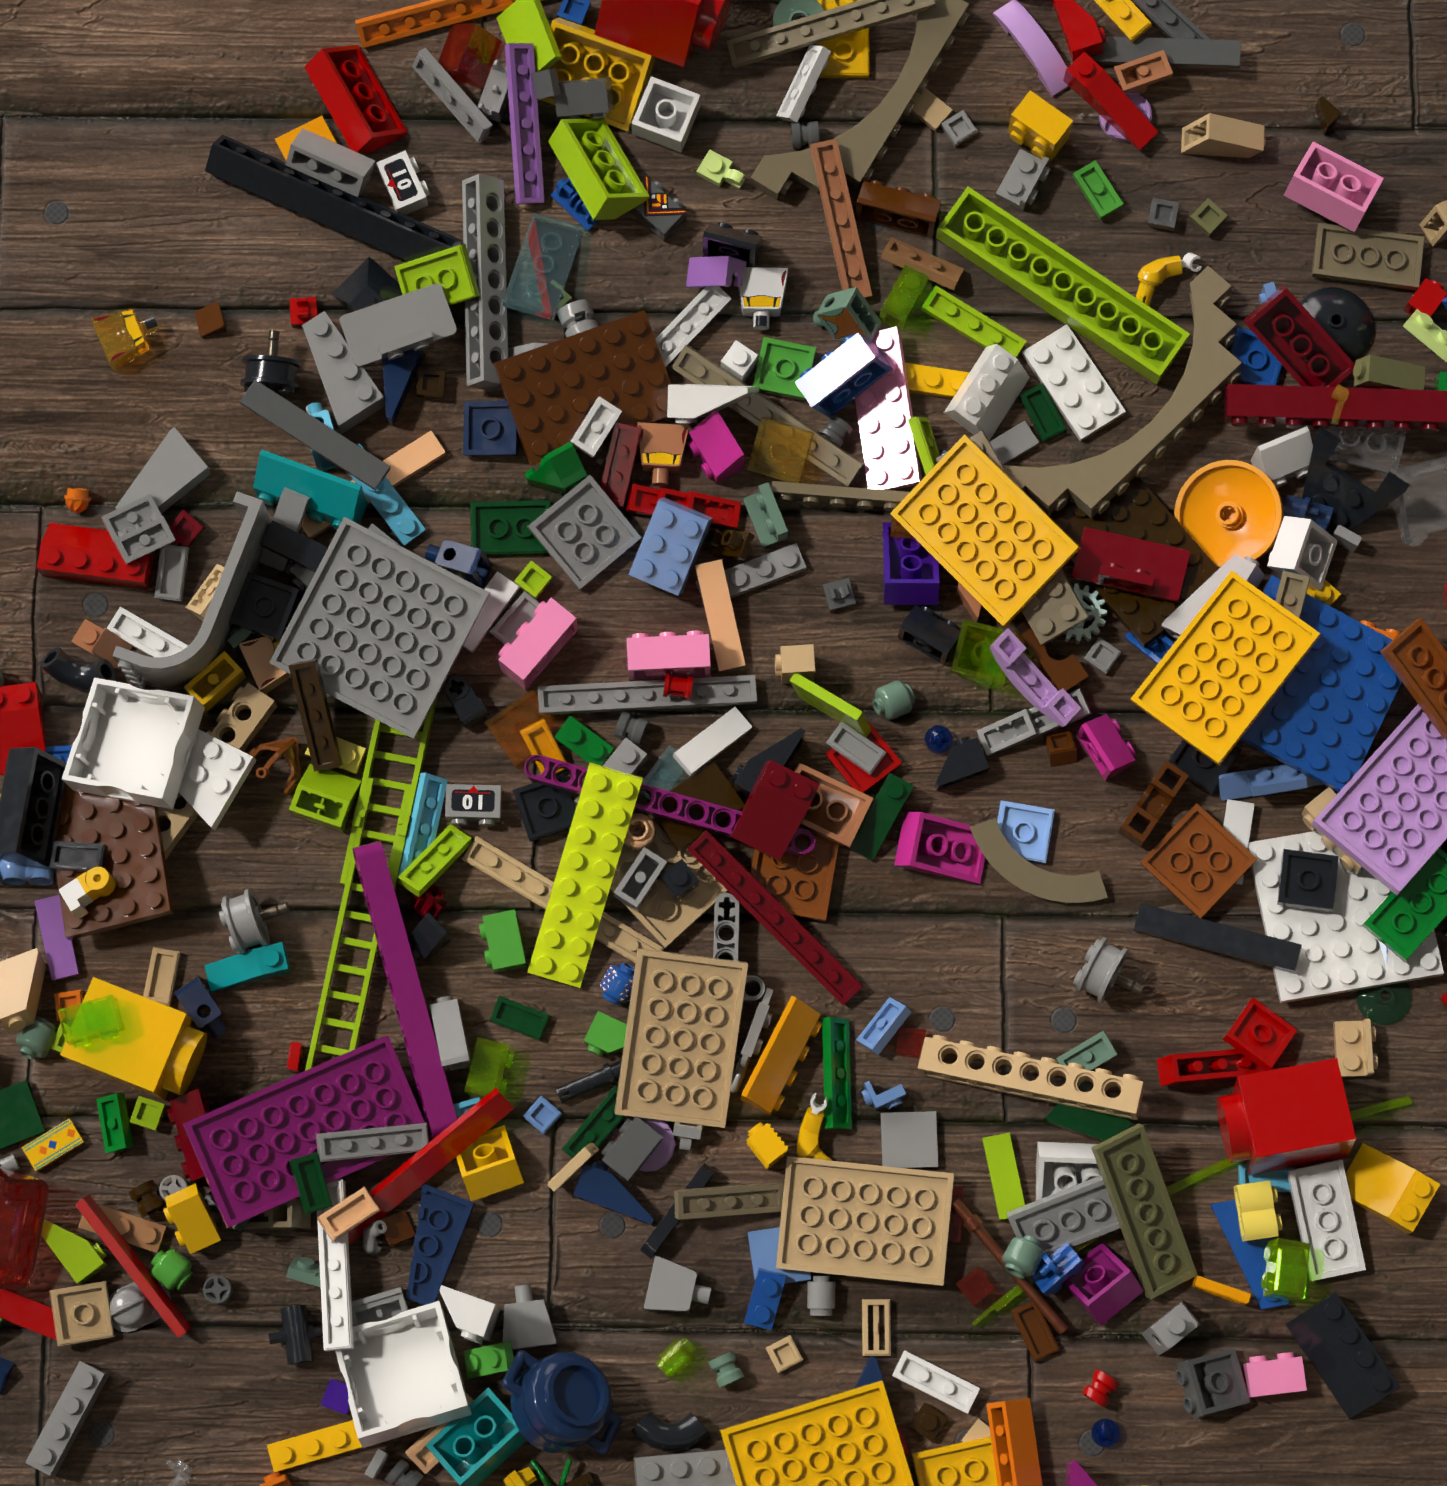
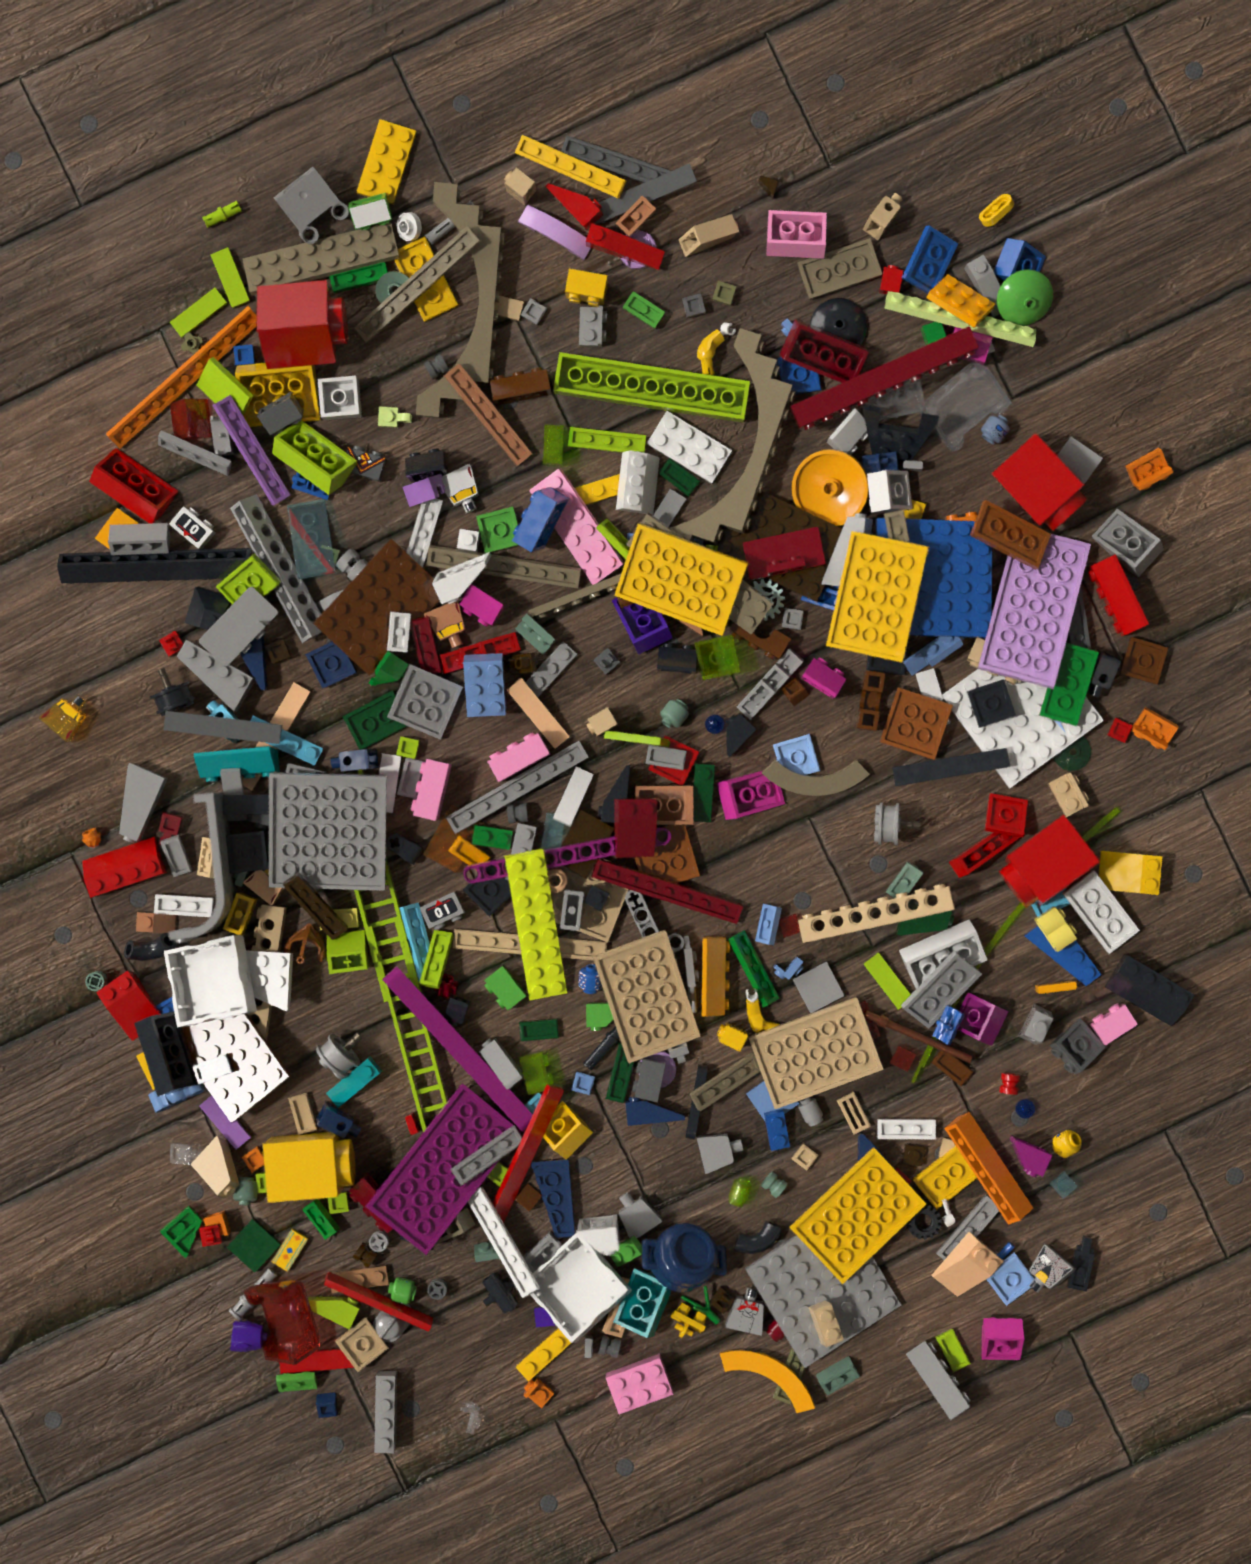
camera: 30 degrees left, 10 degrees up
(86, 889) = (229, 1088): leg -> none
(91, 1020) = (276, 1173): clear neon green brick -> none
(138, 528) = (141, 841): light grey slope -> none
(192, 1219) = (399, 1255): yellow brick -> none
(210, 320) = (115, 679): reddish brown slope -> none
(310, 1183) = (462, 1200): dark green tile -> none
(348, 1214) = (495, 1207): light nougat tile -> none
(370, 1233) = (516, 1211): light grey arm -> none
(372, 1175) = (498, 1173): none -> lime tile
(546, 83) = (252, 418): dark grey tile -> none
(572, 1166) = (618, 1108): tan tile -> none
(678, 686) = (534, 774): red bush -> none
(780, 451) = (524, 587): clear yellow plate -> none
(803, 83) = (418, 332): white plate -> none
(836, 430) = (552, 555): dark grey wheel -> none
(846, 314) = (524, 477): sand green torso -> none
(937, 269) = (554, 416): medium nougat plate -> none
(1022, 1256) = (924, 1028): sand green head -> none
(1030, 681) = (757, 661): lavender slope -> none
(1144, 1211) = (986, 964): olive plate -> none
(1285, 1269) = (1090, 956): clear neon green brick -> none
(1341, 395) = (867, 378): clear yellow hand -> none
(1387, 374) = (891, 348): olive slope -> none

